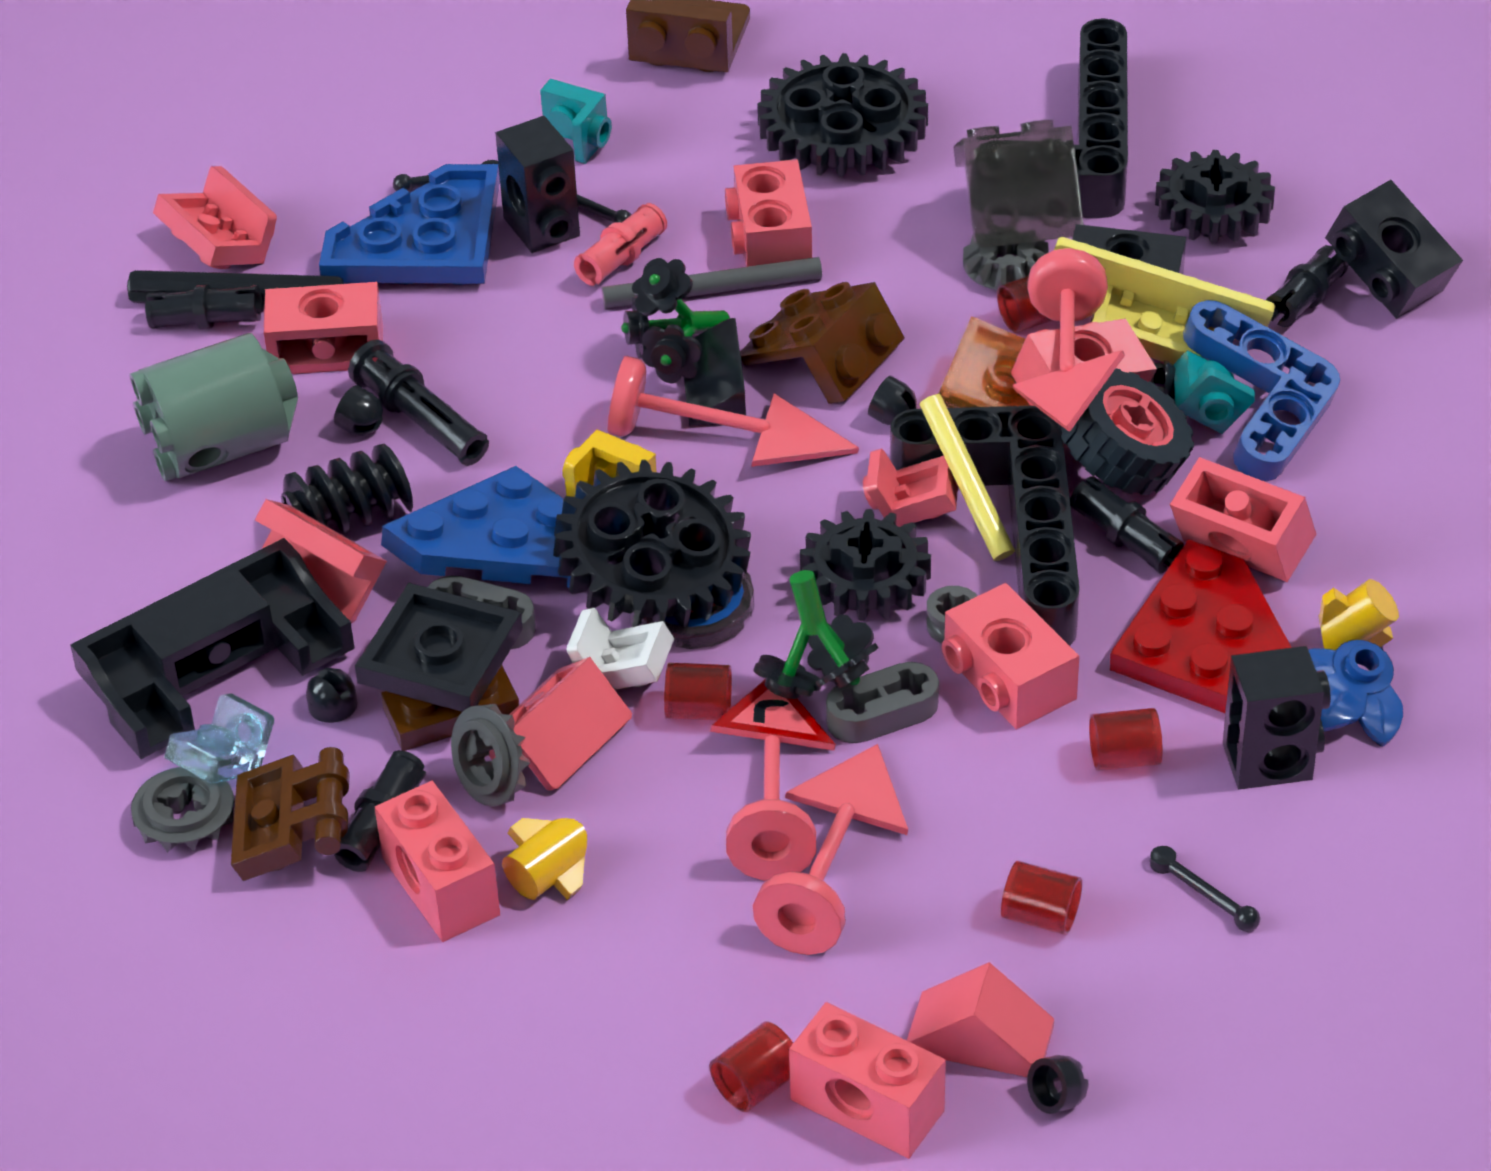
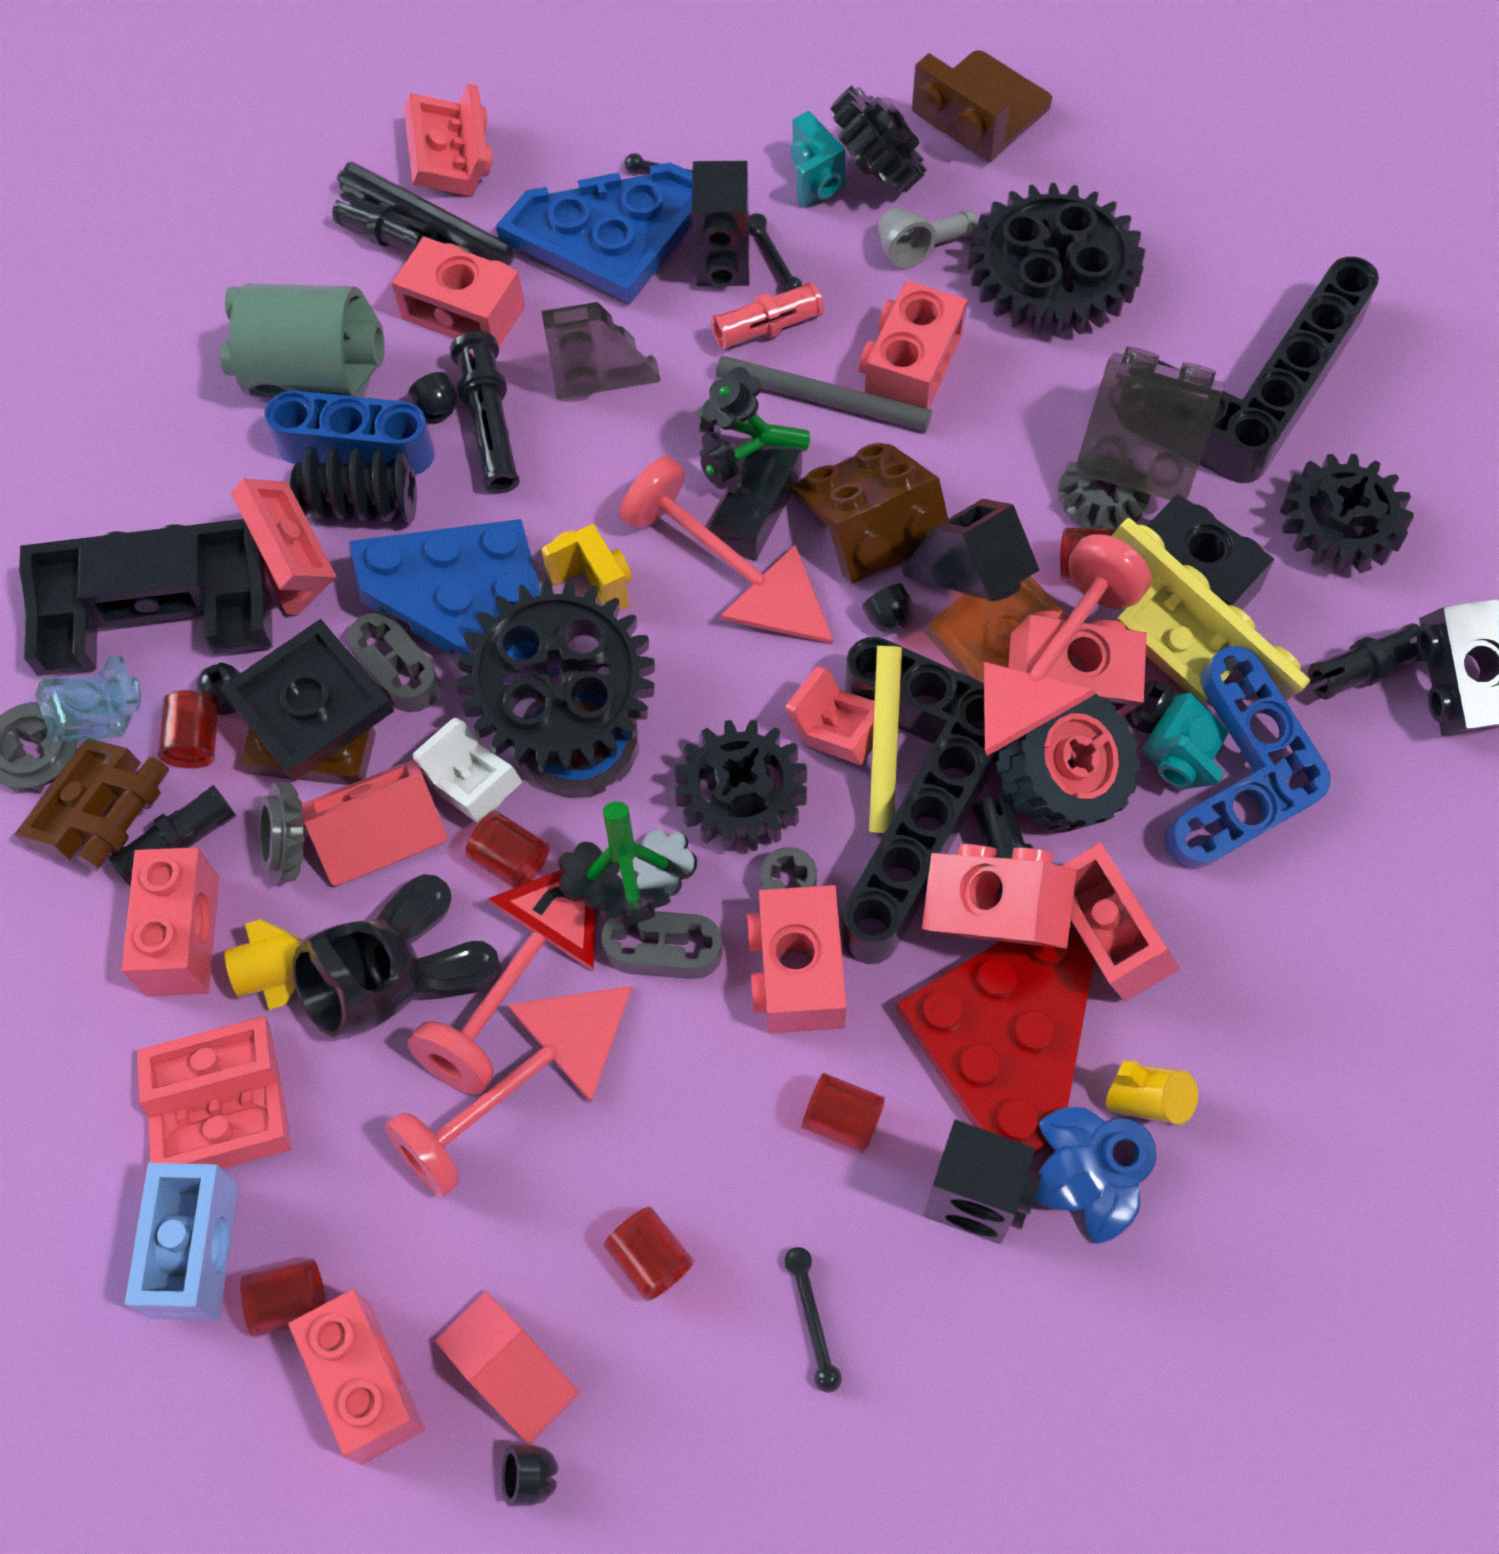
camera: 30 degrees right, 20 degrees up
(257, 465) = (347, 423): none -> blue beam
(328, 721) = (188, 729): none -> clear red beam
(491, 317) = (593, 352): none -> clear smoke wing
(573, 975) = (214, 1096): none -> coral slope
(629, 77) = (878, 139): none -> black gear
(643, 1056) = (182, 1242): none -> light blue brick
(652, 809) = (368, 970): none -> black piece
(704, 143) = (911, 238): none -> light grey bar
(953, 303) = (976, 552): none -> black slope
(1177, 535) = (1032, 905): none -> coral brick

